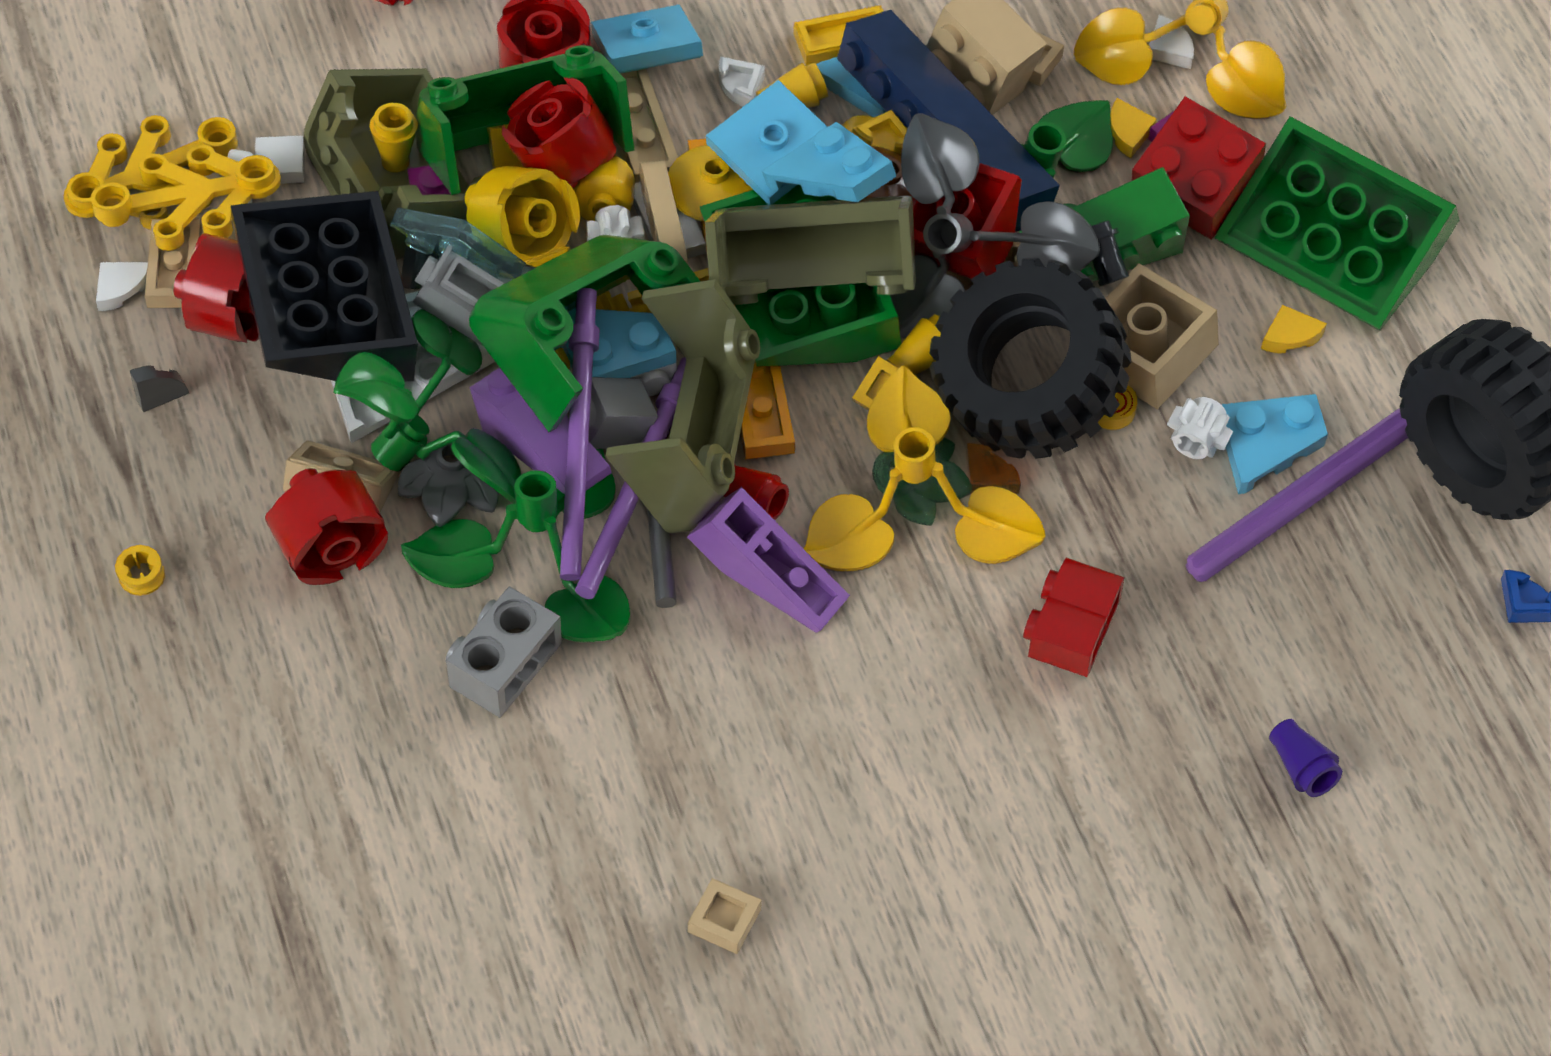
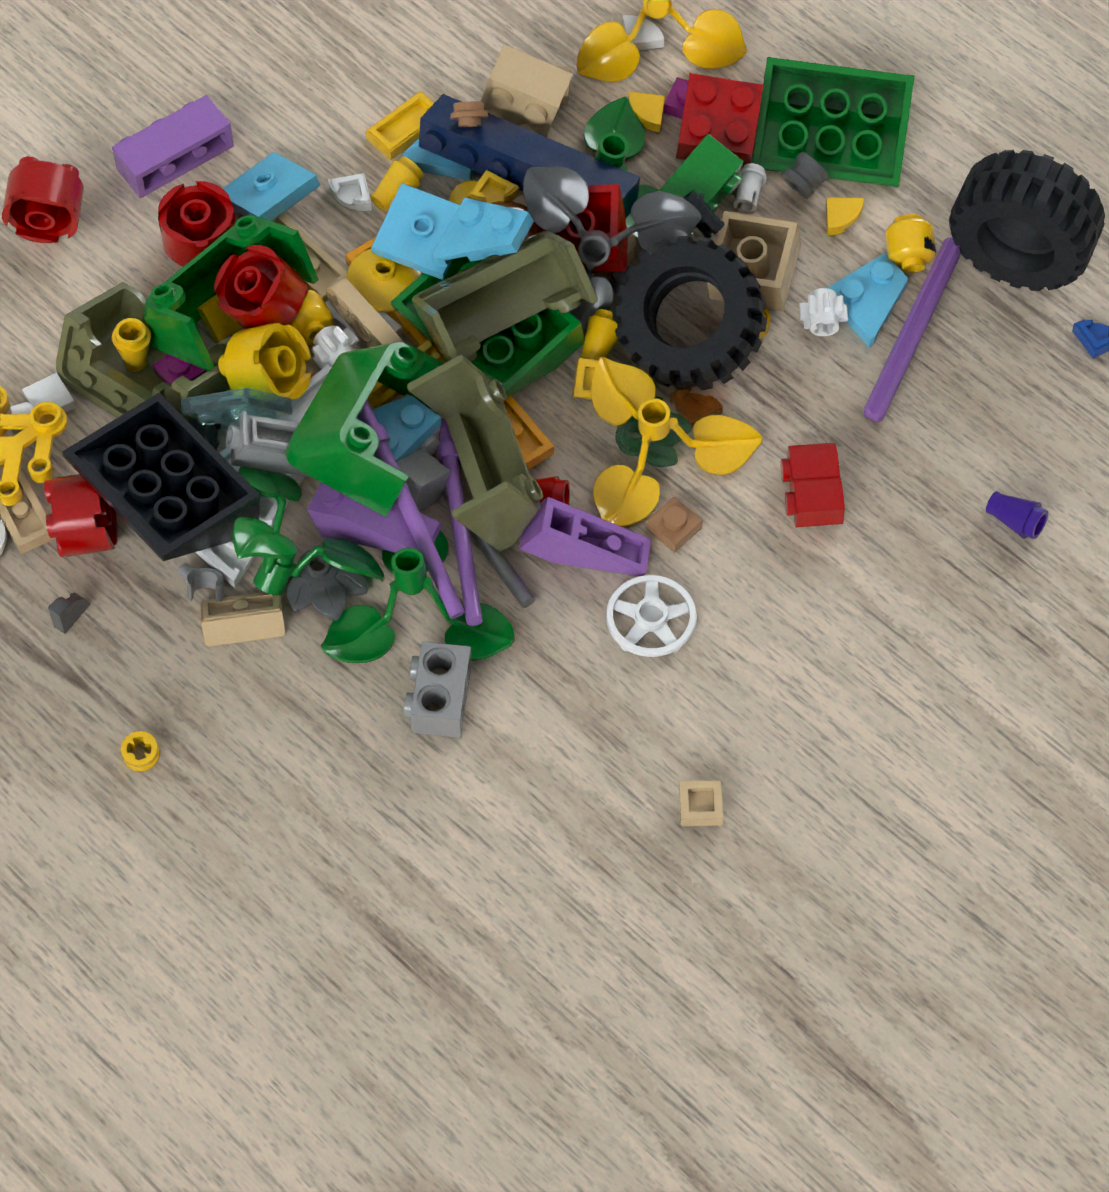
camera: 25 degrees left, 5 degrees up
(321, 416) = (202, 578): none -> light grey piece
(327, 525) = (264, 656): red brick -> none
(798, 680) = (651, 616): none -> white wheel
(886, 590) = (674, 524): none -> medium nougat plate
(899, 37) = (469, 113): none -> medium nougat plate
(1204, 249) = (749, 187): none -> white pin
(1268, 268) = (804, 175): none -> dark grey wheel
(1352, 395) = (910, 242): none -> yellow head

